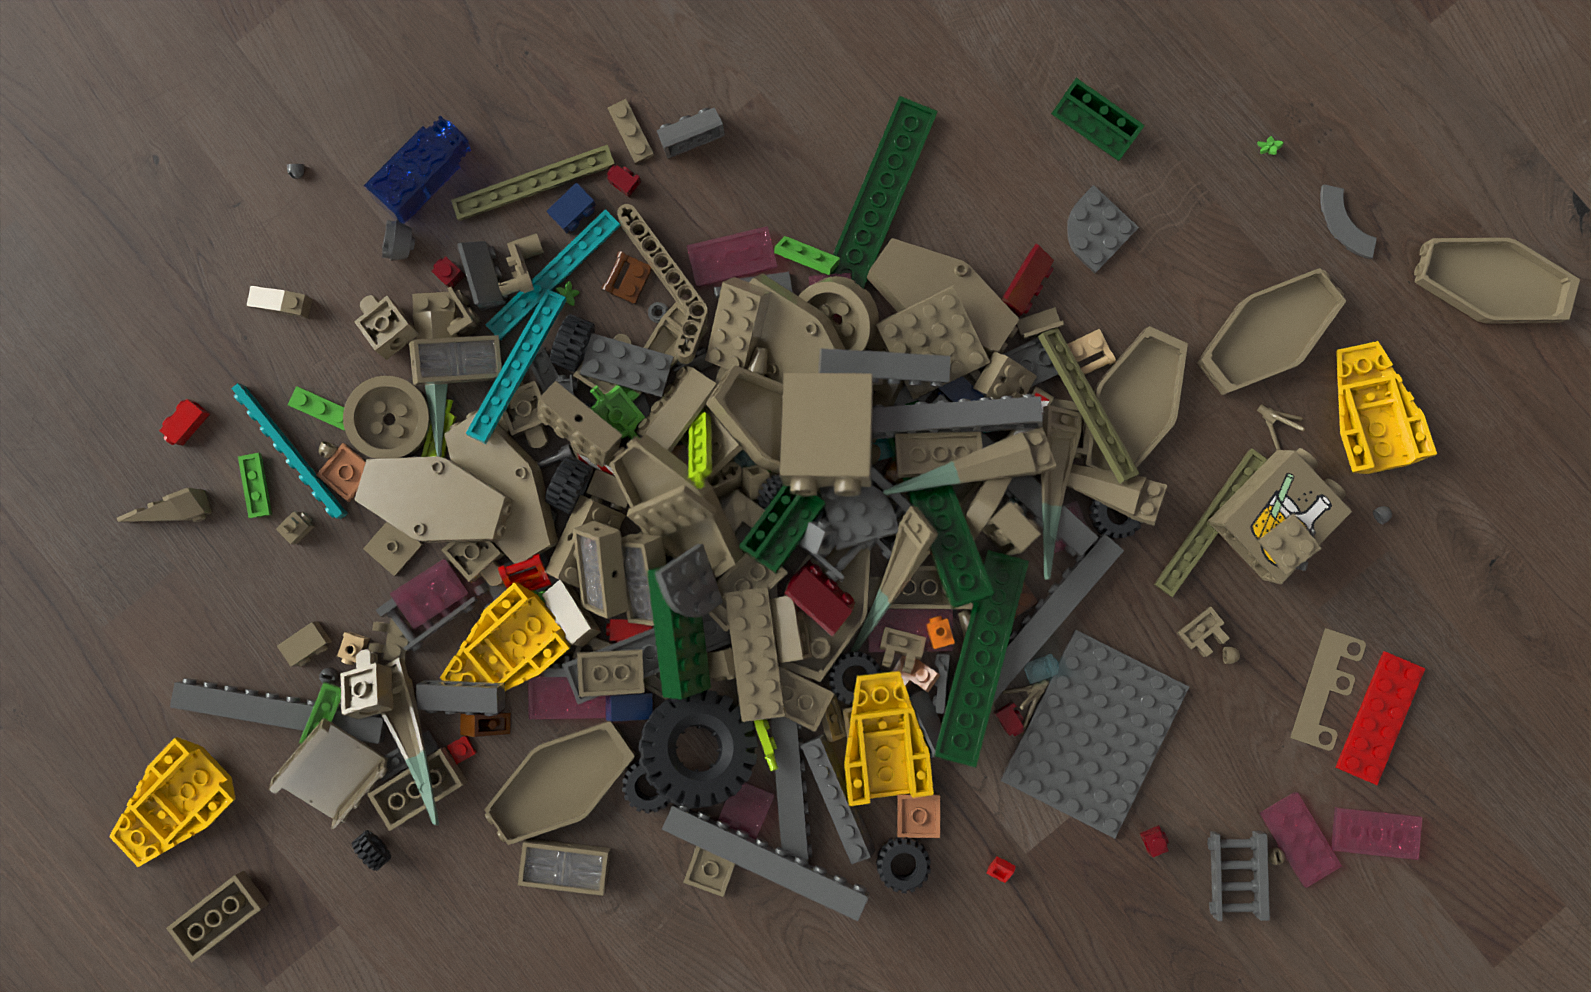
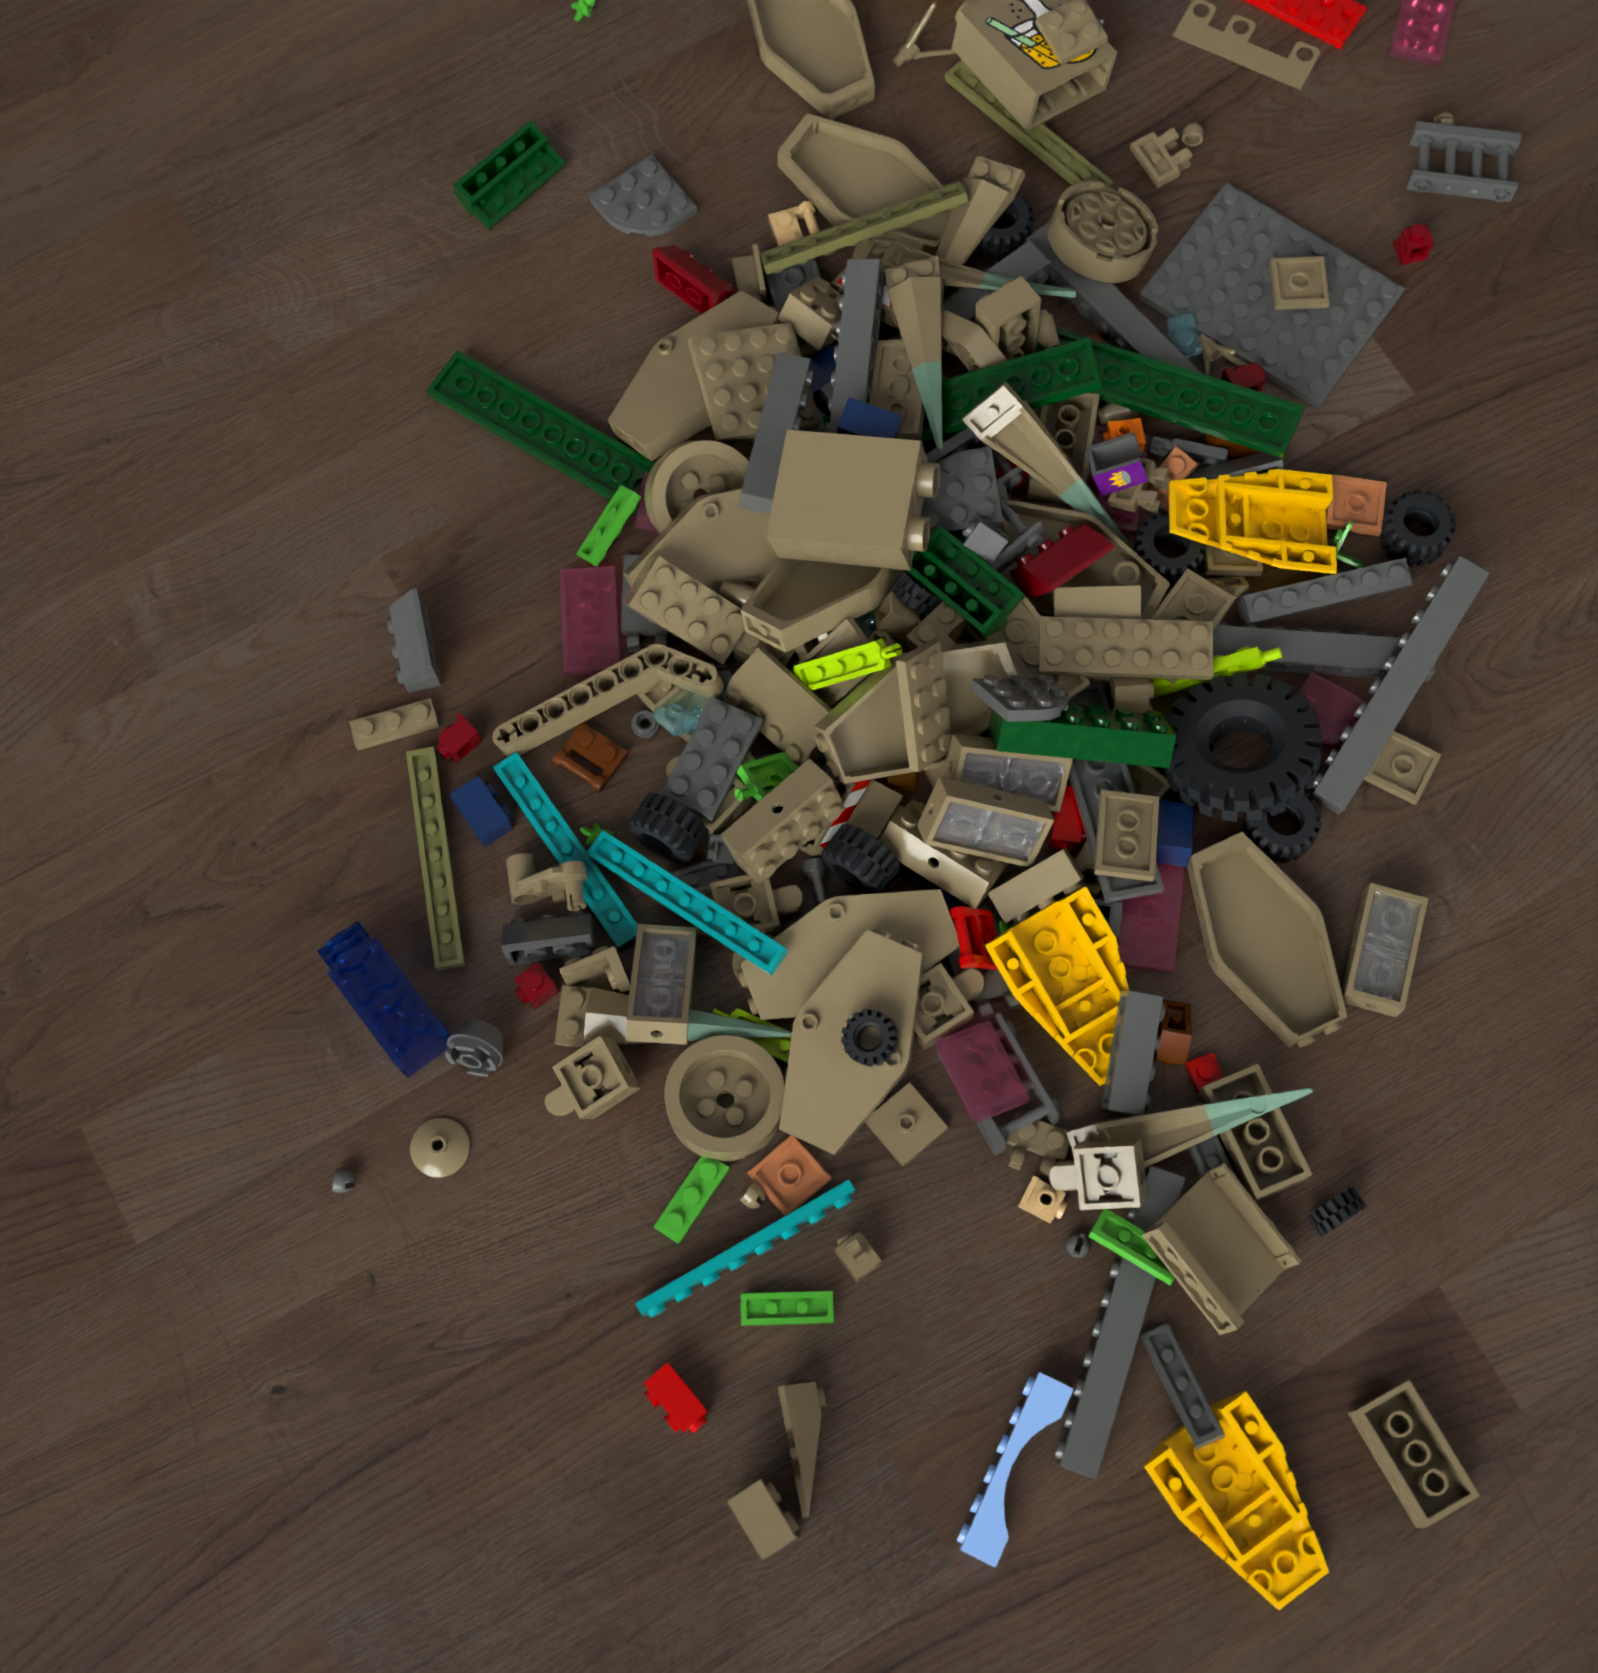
camera: 80 degrees left, 15 degrees down
(101, 492) = (763, 1518): none -> dark tan brick
(213, 665) = (988, 1531): none -> light blue arch
(239, 757) = (1182, 1386): none -> dark grey tile
(279, 301) = (526, 1233): slope -> none
(304, 644) = (1029, 1268): dark tan brick -> none
(339, 235) = (448, 1159): none -> dark tan dish
(415, 508) = (883, 1050): none -> black tyre
(655, 334) = (677, 719): none -> clear light blue bracket
(876, 807) = (1338, 541): none -> bright green bracket
(893, 435) = (868, 420): none -> dark blue brick
(920, 621) = (1120, 451): none -> piece
(1001, 869) = (1433, 419): red plate -> none
(1019, 560) = (1047, 331): none -> dark tan cone
(1099, 590) = (1098, 250): none -> dark tan brick
(1100, 754) = (1299, 282): none -> dark tan plate
(1300, 839) = (1424, 94): clear pink plate -> none

